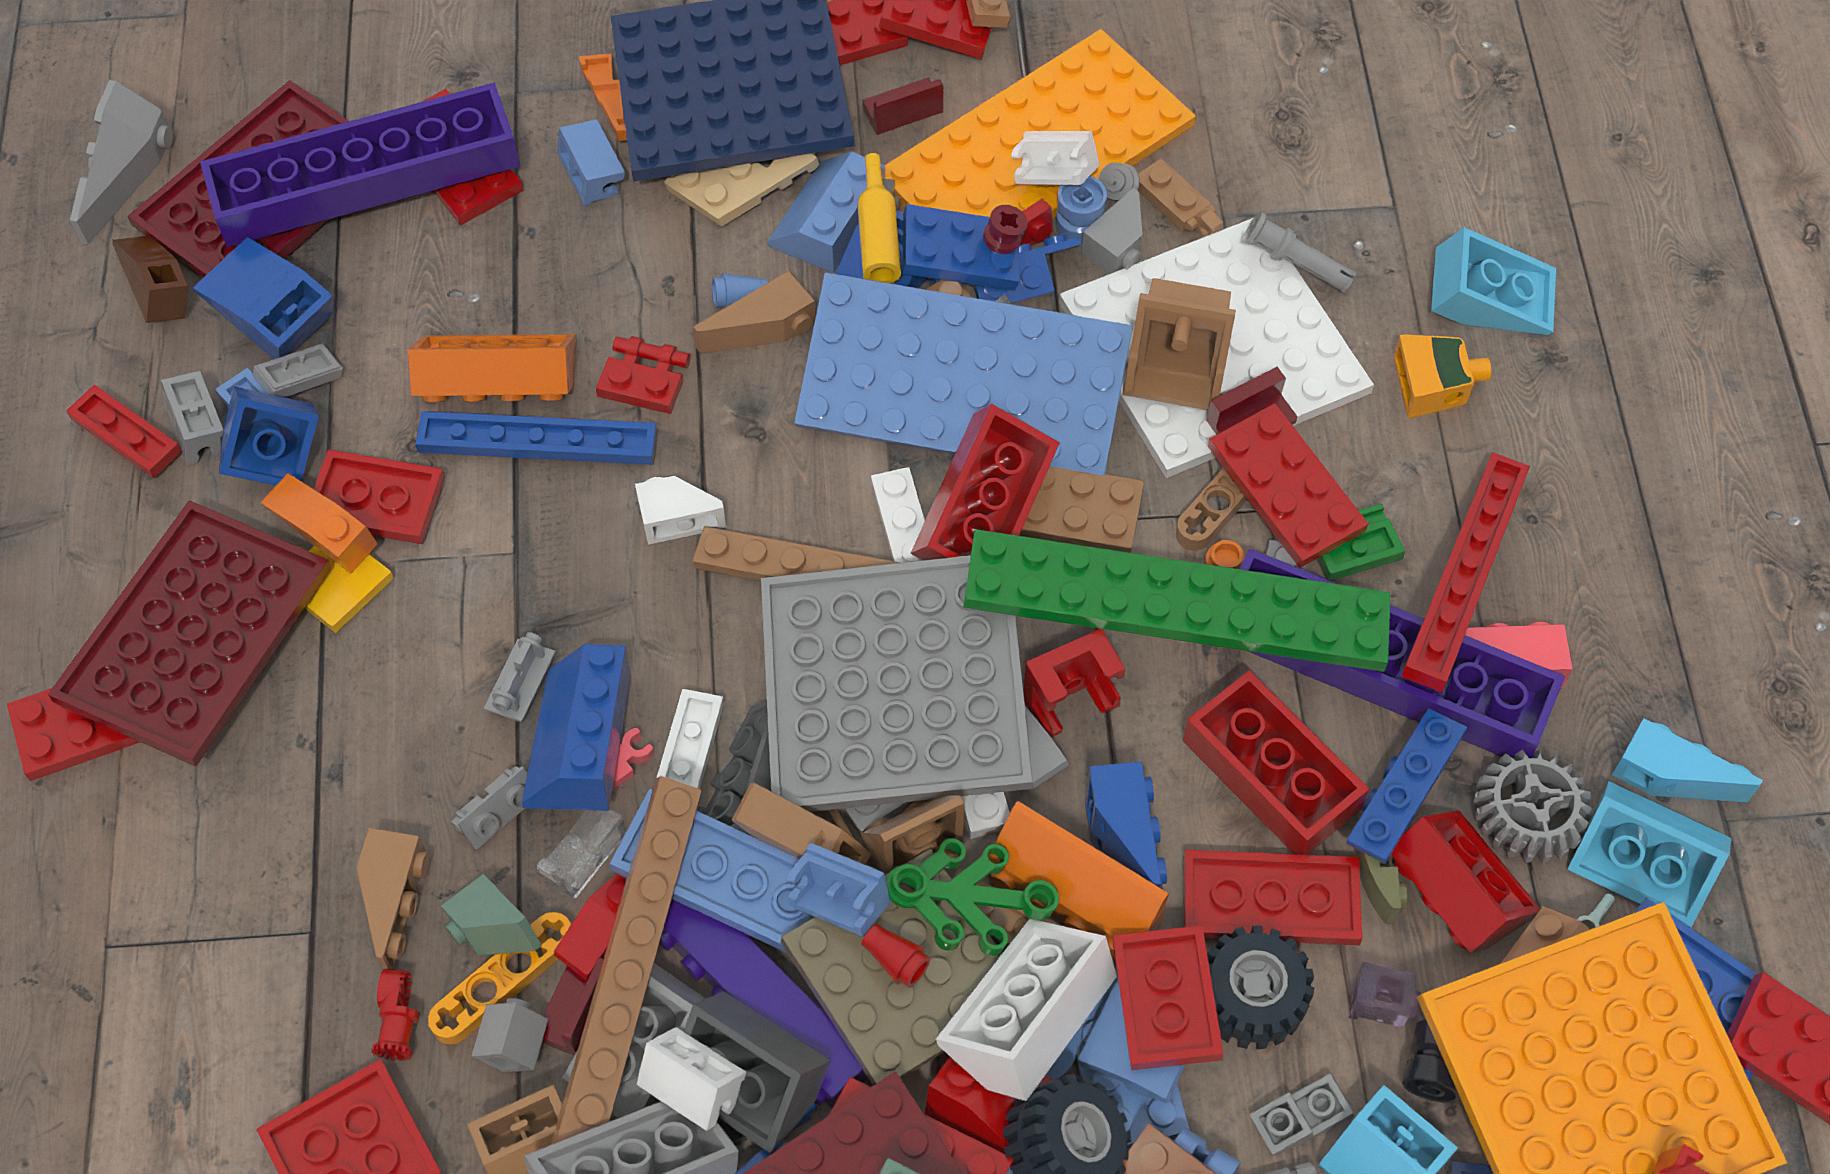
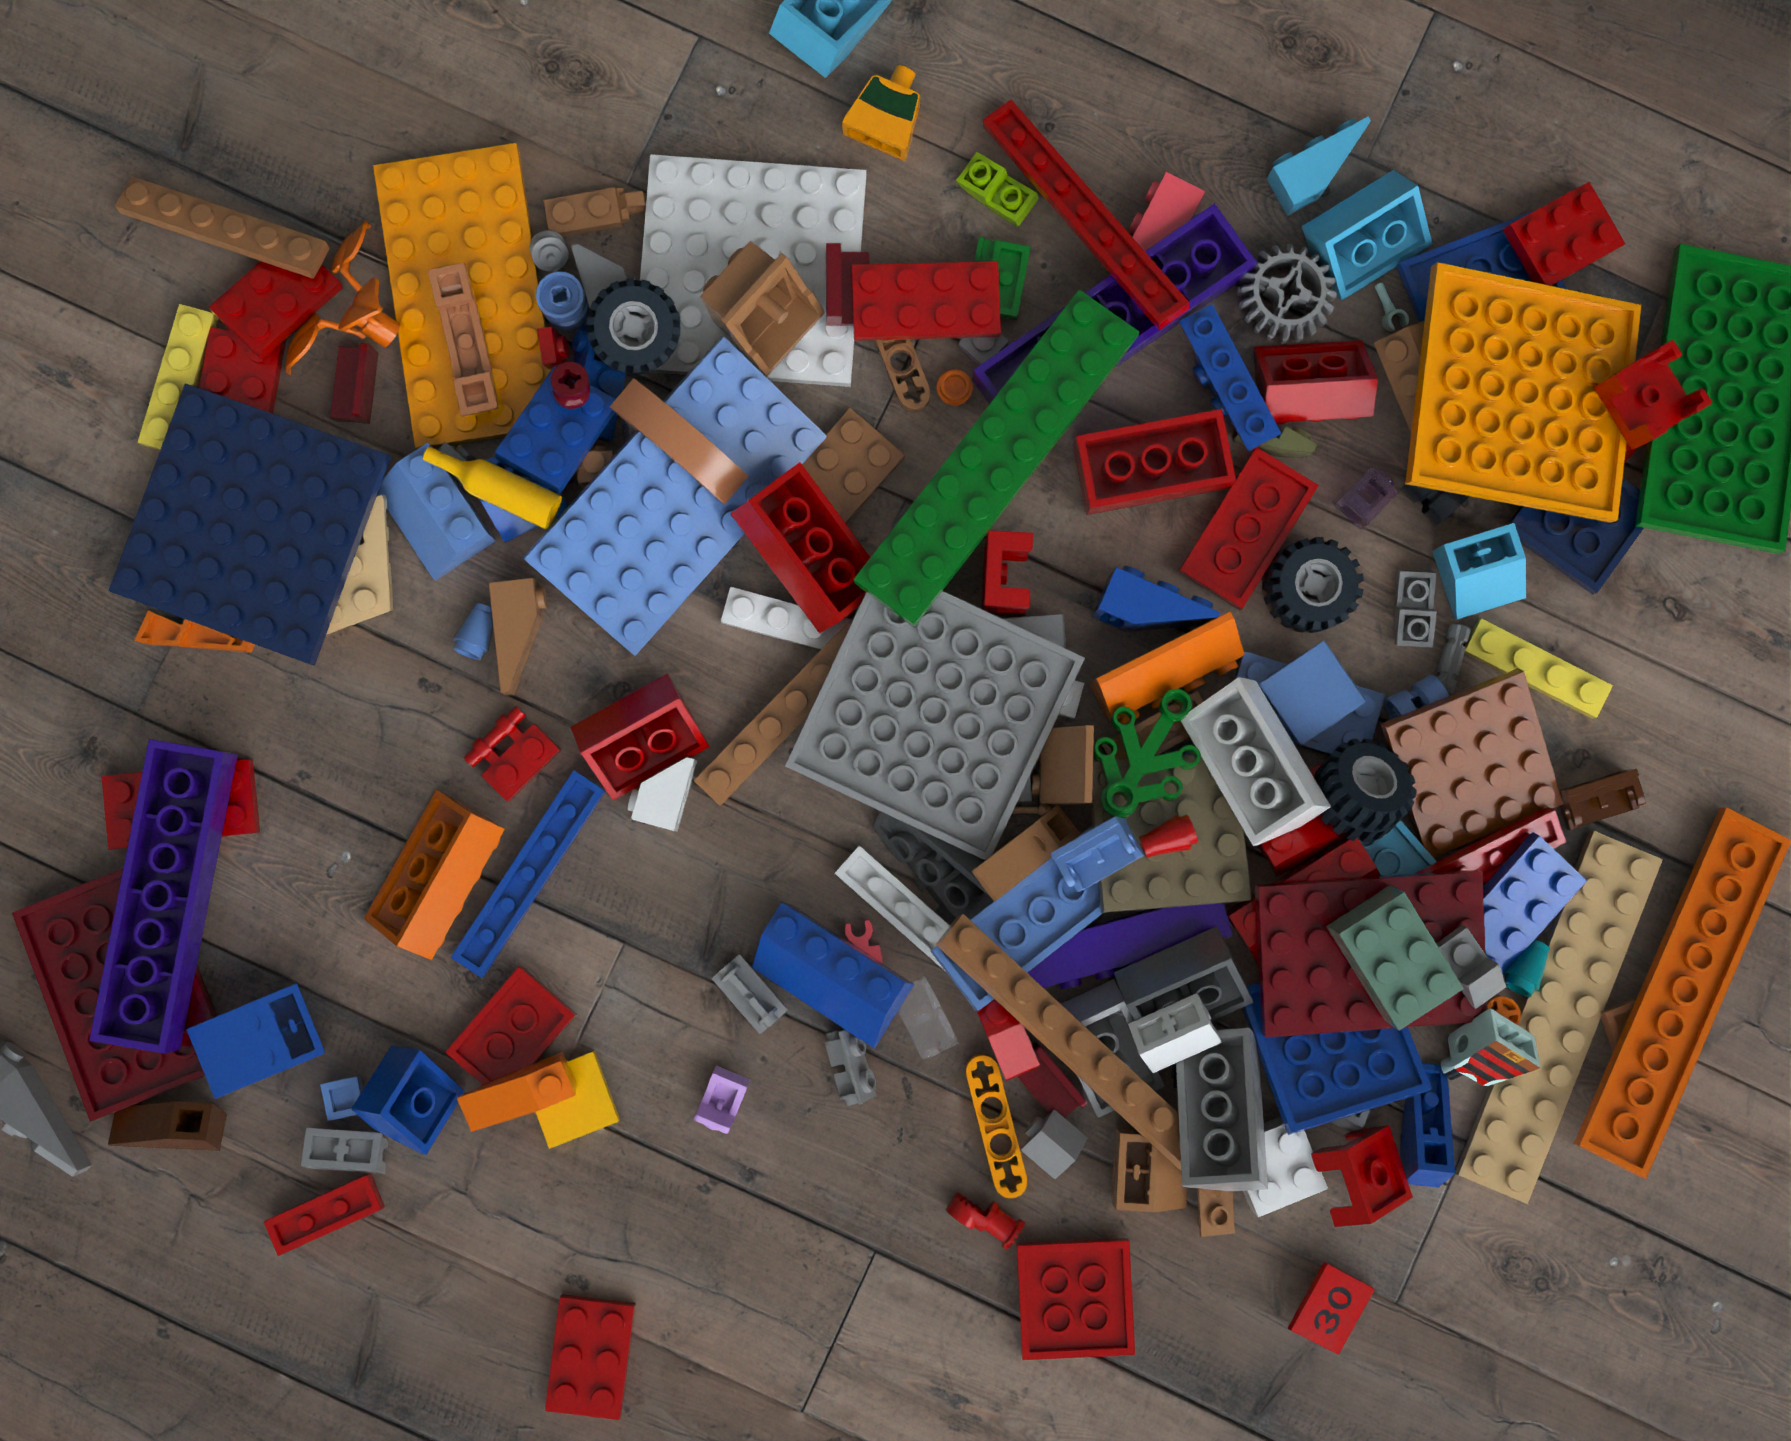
camera: 65 degrees left, 25 degrees up
(190, 632) = (567, 1239): dark red plate -> none
(298, 371) = (347, 1043): light grey plate -> none
(388, 882) = (875, 1179): medium nougat slope -> none
(399, 704) = (721, 1100): none -> lavender bracket
(488, 921) = (952, 1117): sand green slope -> none
(589, 160) = (261, 688): medium blue hinge -> none
(720, 459) = (639, 736): none -> red slope
(965, 87) = (363, 312): none -> orange plant
(992, 156) = (464, 339): none -> nougat slope
(1012, 340) = (679, 440): none -> nougat slope
(1055, 157) = (511, 296): white hinge -> none
(1093, 259) = (633, 326): none -> black wheel
(1167, 998) = (1301, 658): red plate -> none
(1284, 244) = (701, 157): light grey pin -> none
(1438, 502) = (996, 190): none -> lime slope

